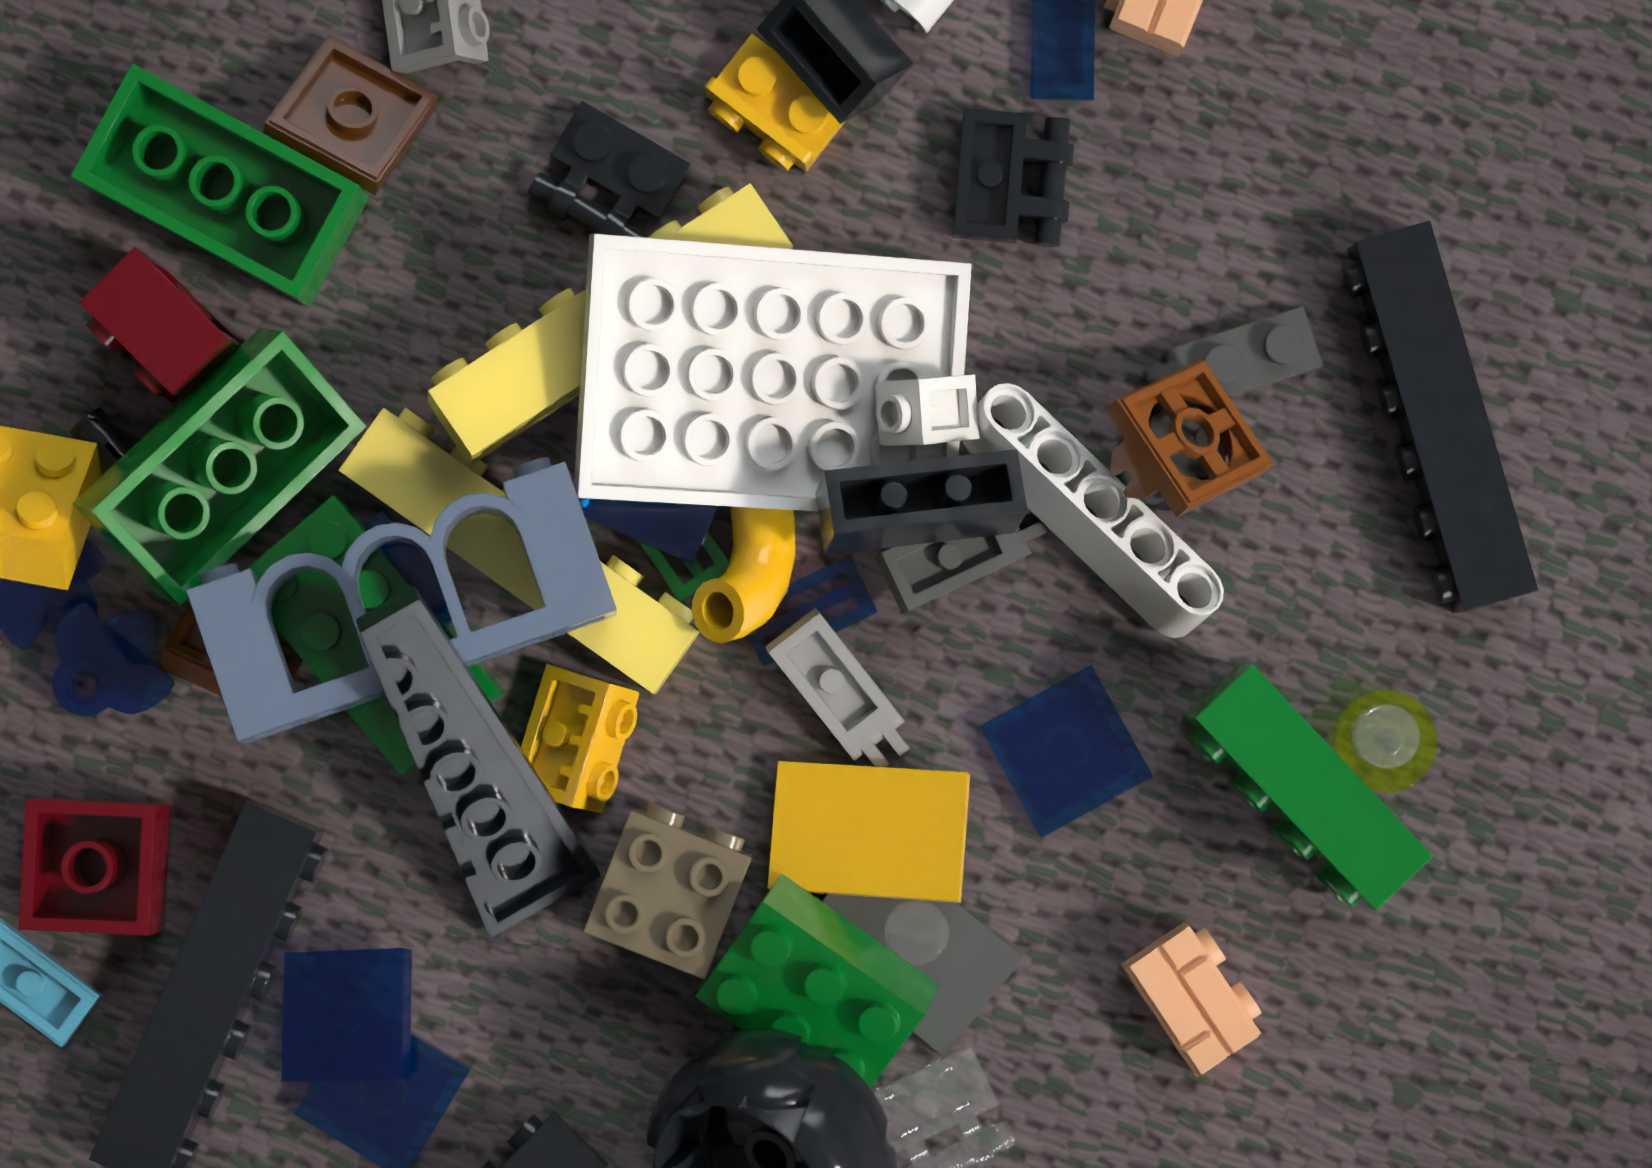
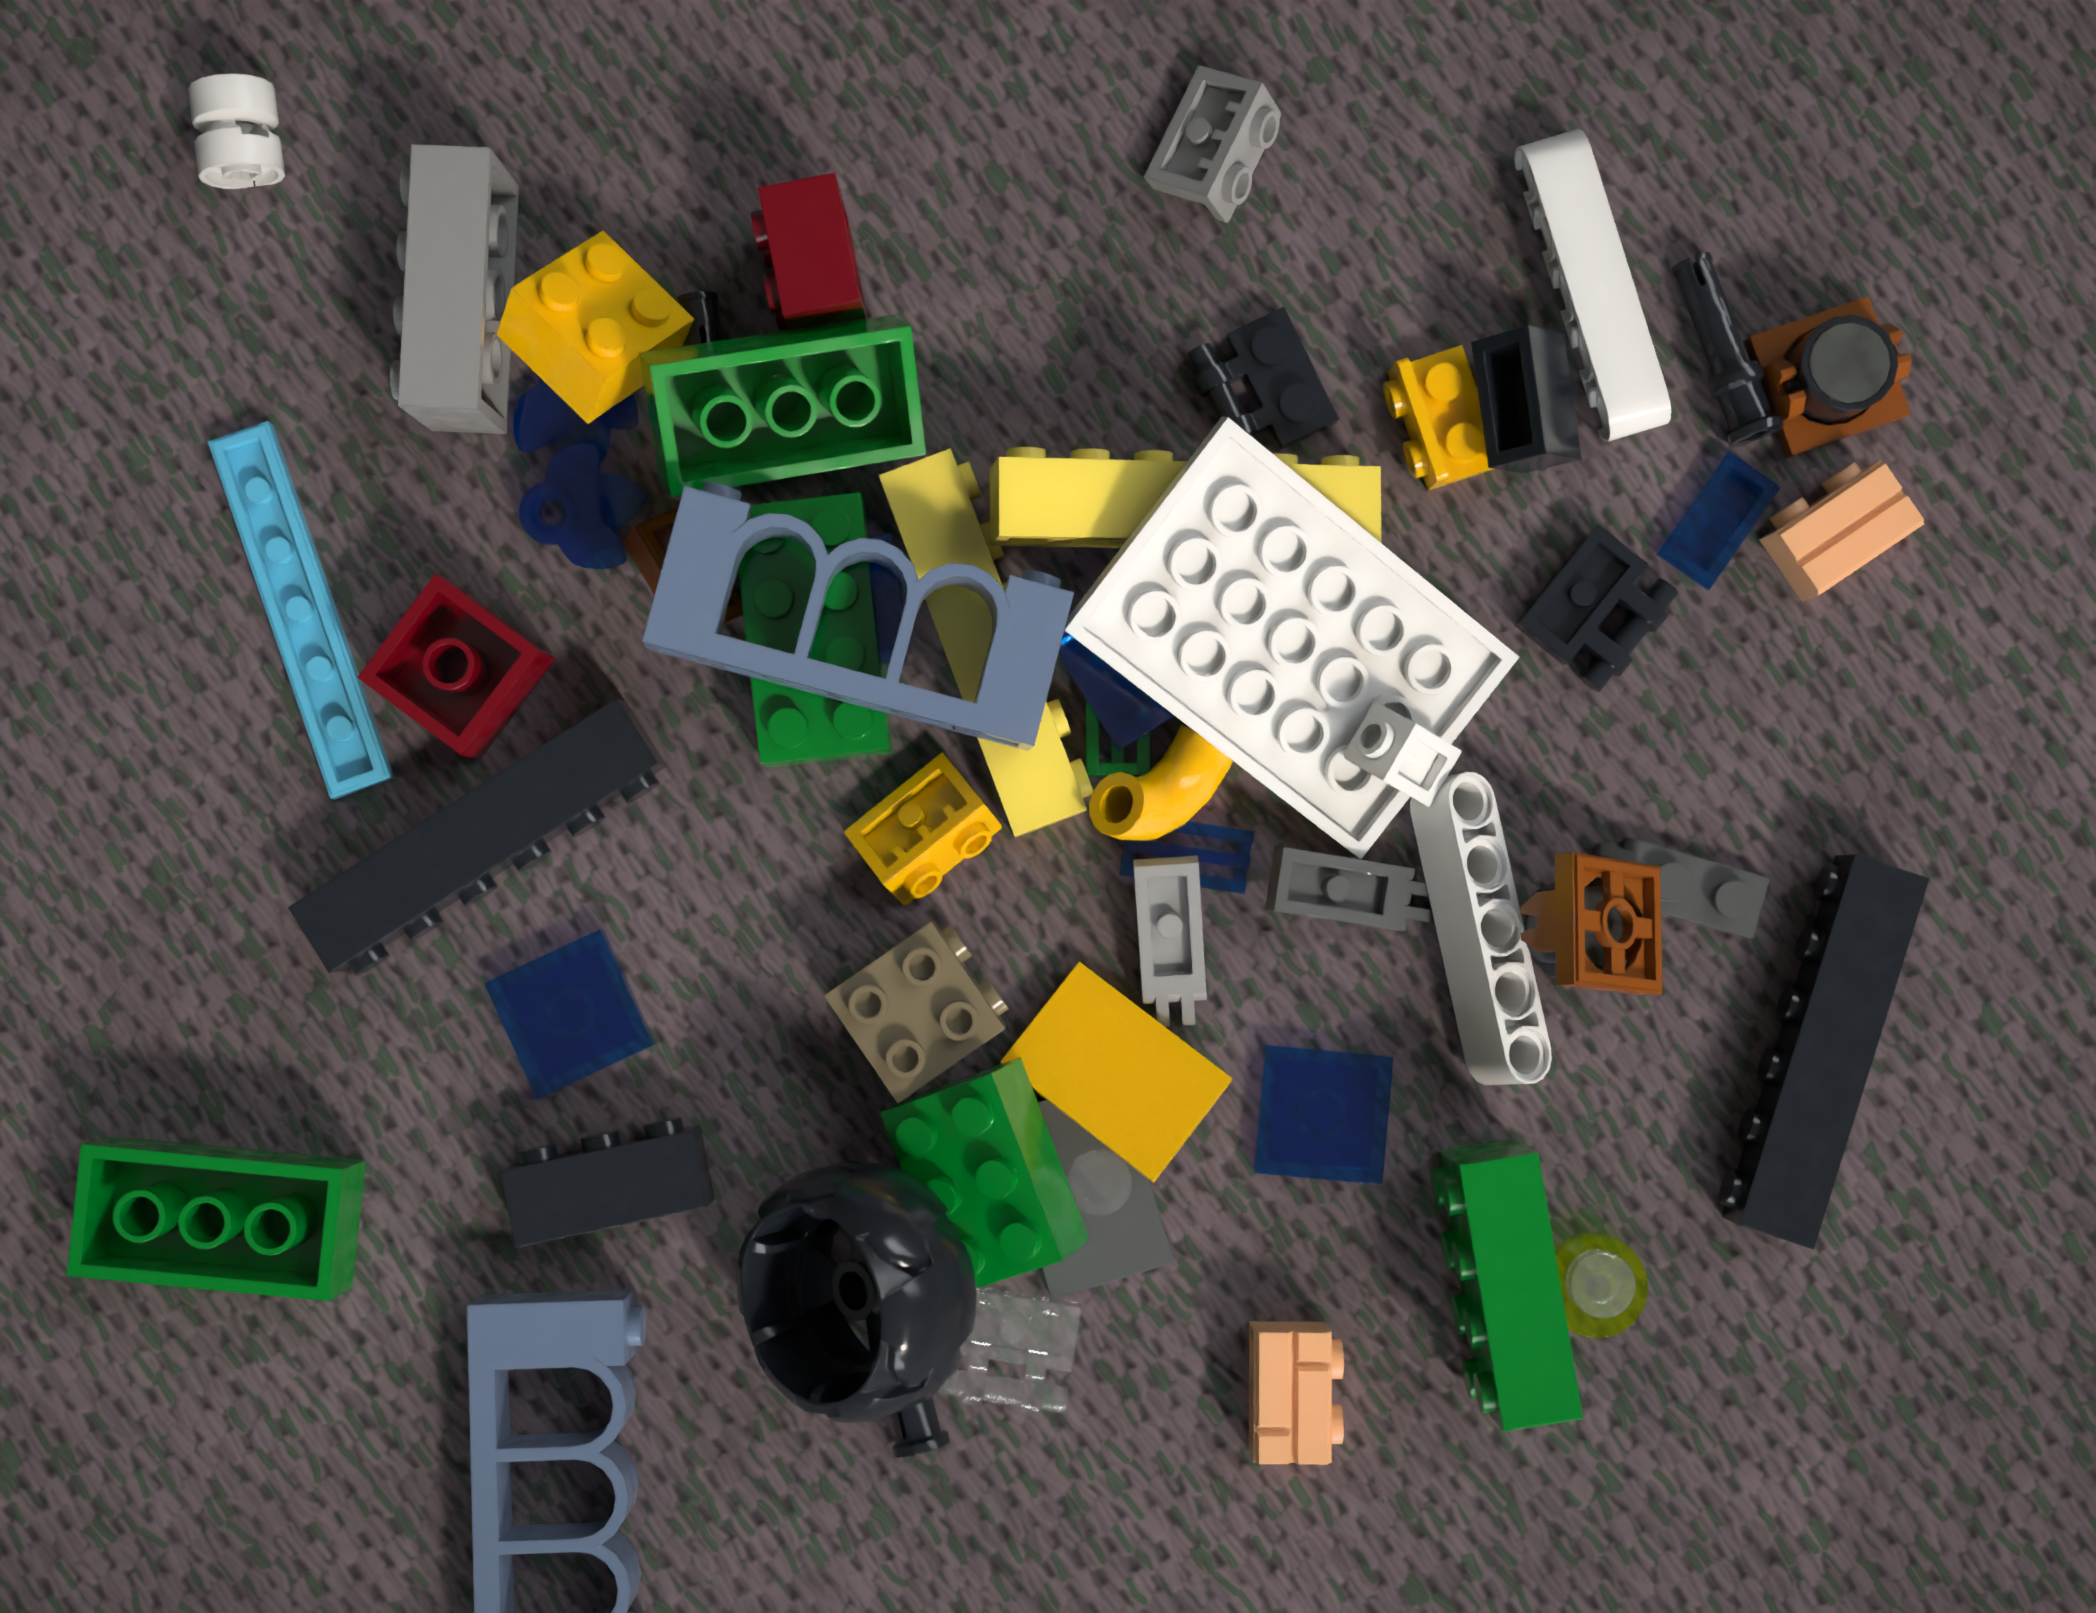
camera: 30 degrees right, 0 degrees up
(220, 185) = (939, 175): green brick -> none
(347, 1015) = (581, 932): clear blue tile -> none
(351, 114) = (1085, 190): reddish brown tile -> none
(488, 796) = (821, 820): wing -> none
(920, 501) = (1348, 827): black brick -> none

